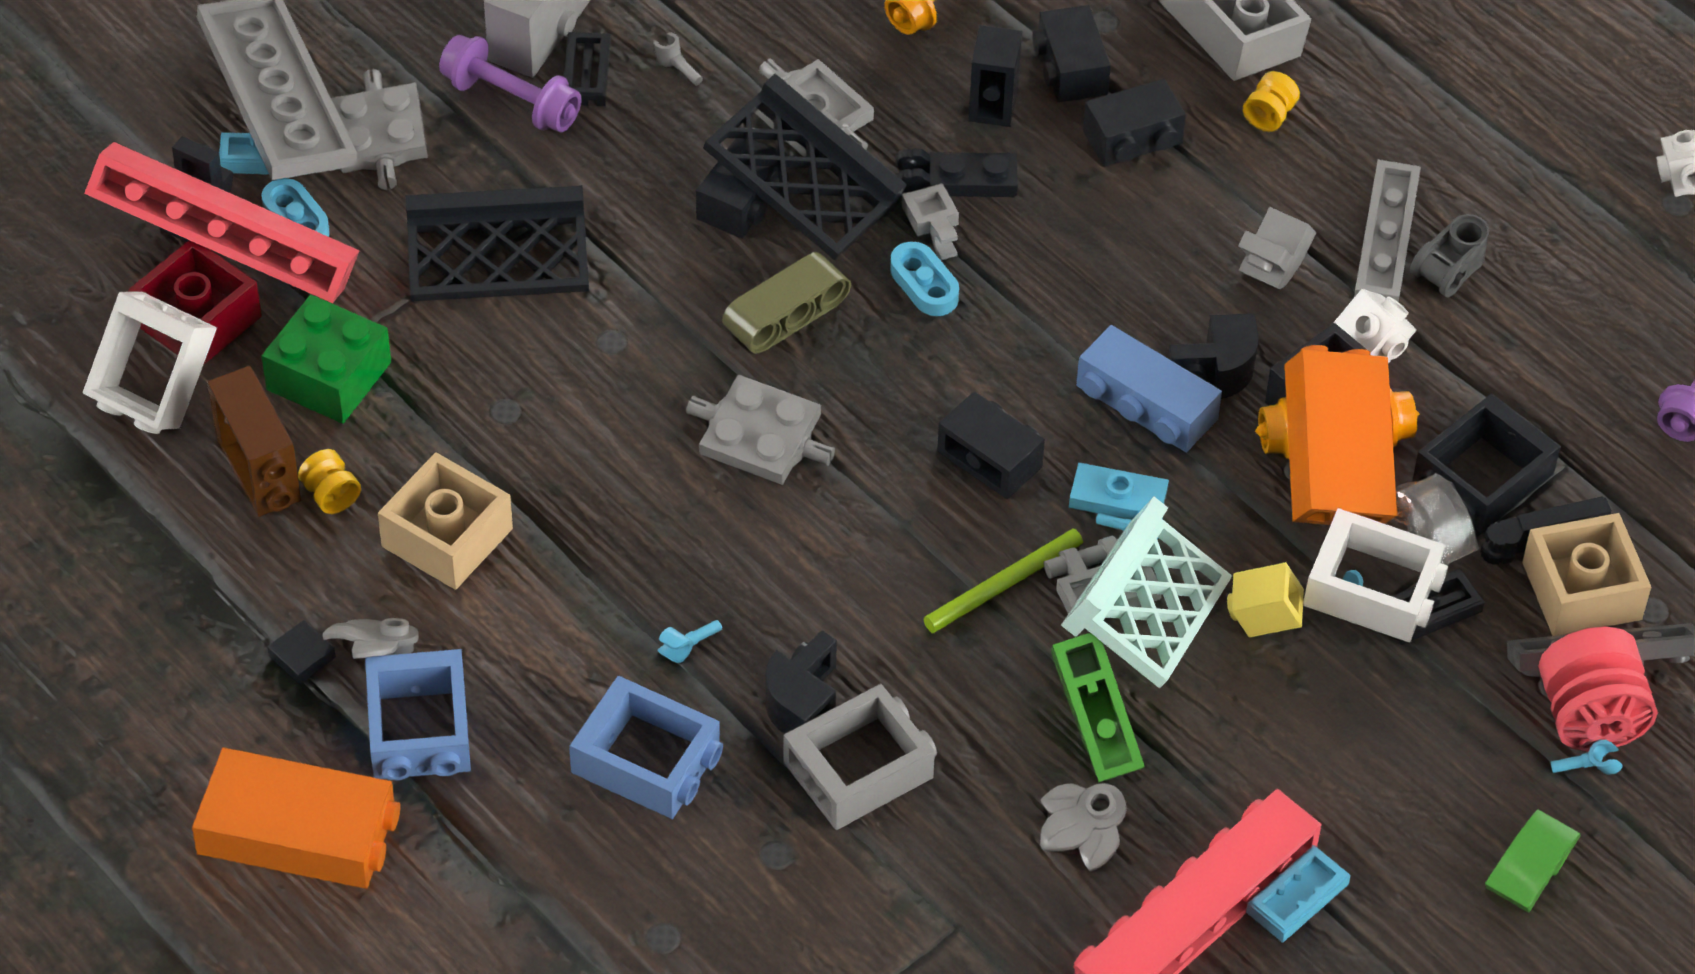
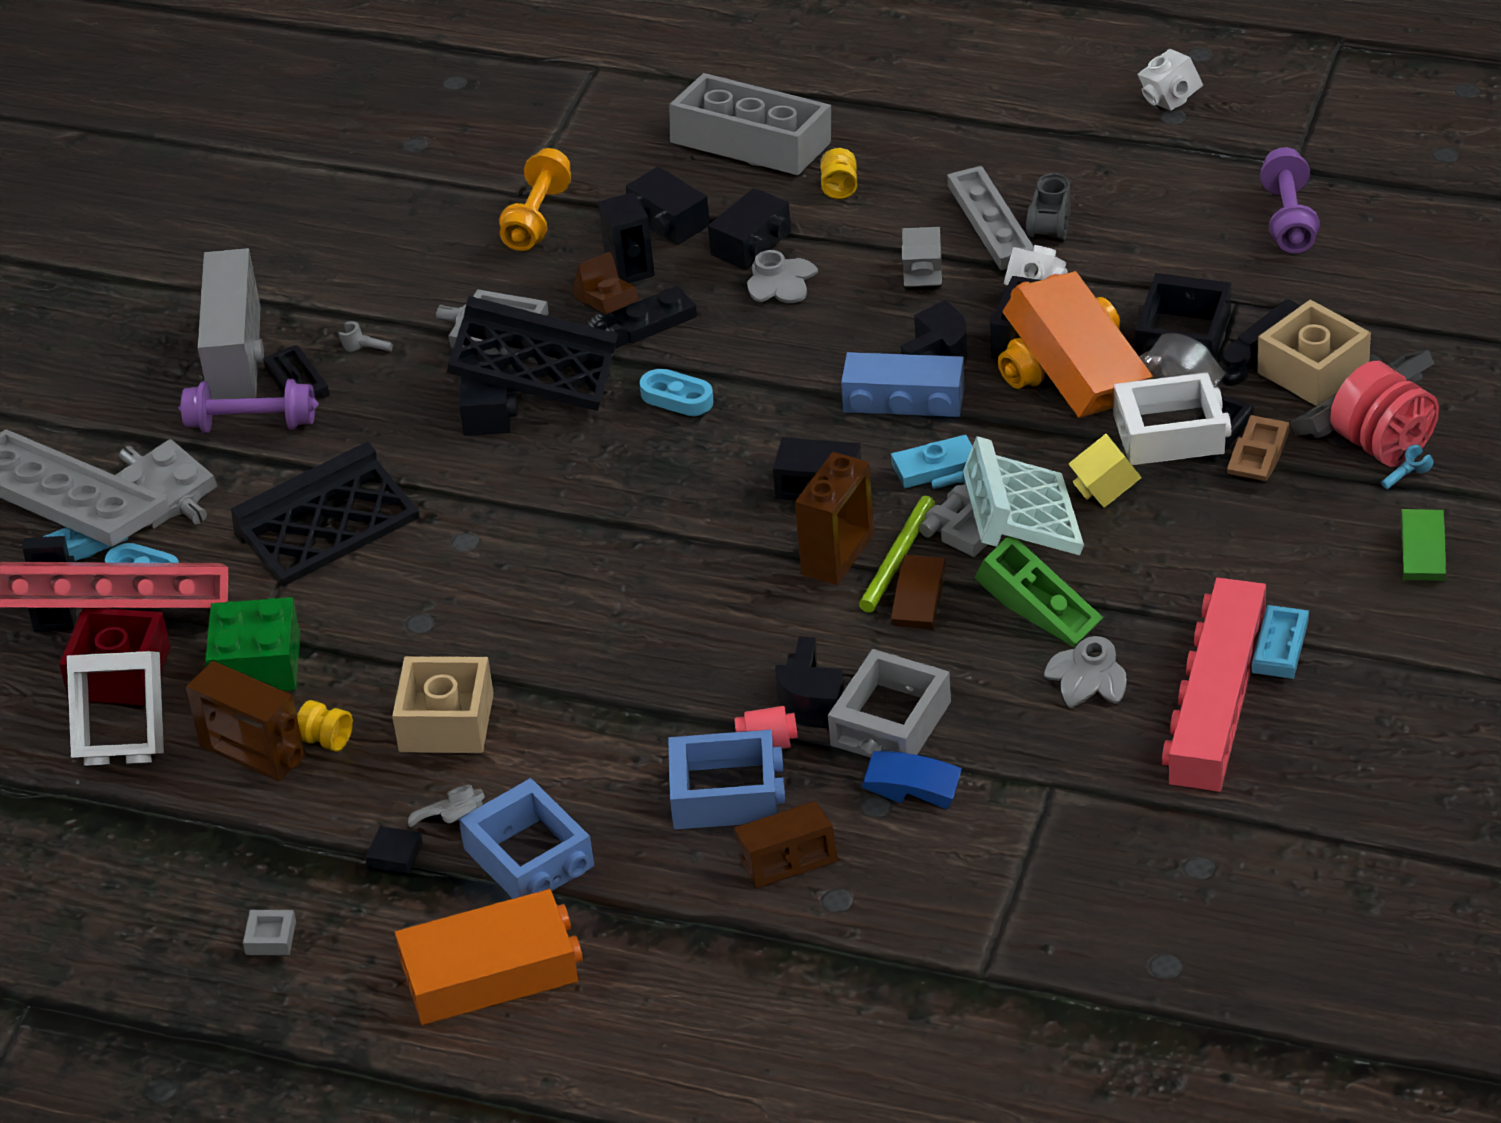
camera: 25 degrees left, 10 degrees down
(127, 679) = (269, 932): none -> light grey plate
(651, 852) = (786, 844): none -> reddish brown hinge
(679, 646) = (689, 705): medium azure hand -> none
(735, 712) = (774, 719): none -> coral brick
(760, 429) = (632, 542): light grey plate -> none
(786, 302) = (584, 452): olive beam -> none
(825, 843) = (904, 773): none -> blue slope
(934, 213) = (647, 348): light grey plate -> none
(938, 119) = (600, 286): none -> reddish brown slope
(941, 546) = (834, 518): none -> reddish brown window
(987, 634) = (918, 591): none -> reddish brown slope
(1124, 195) = (779, 277): none -> light grey plate
(1452, 657) = (1259, 448): none -> medium nougat slope

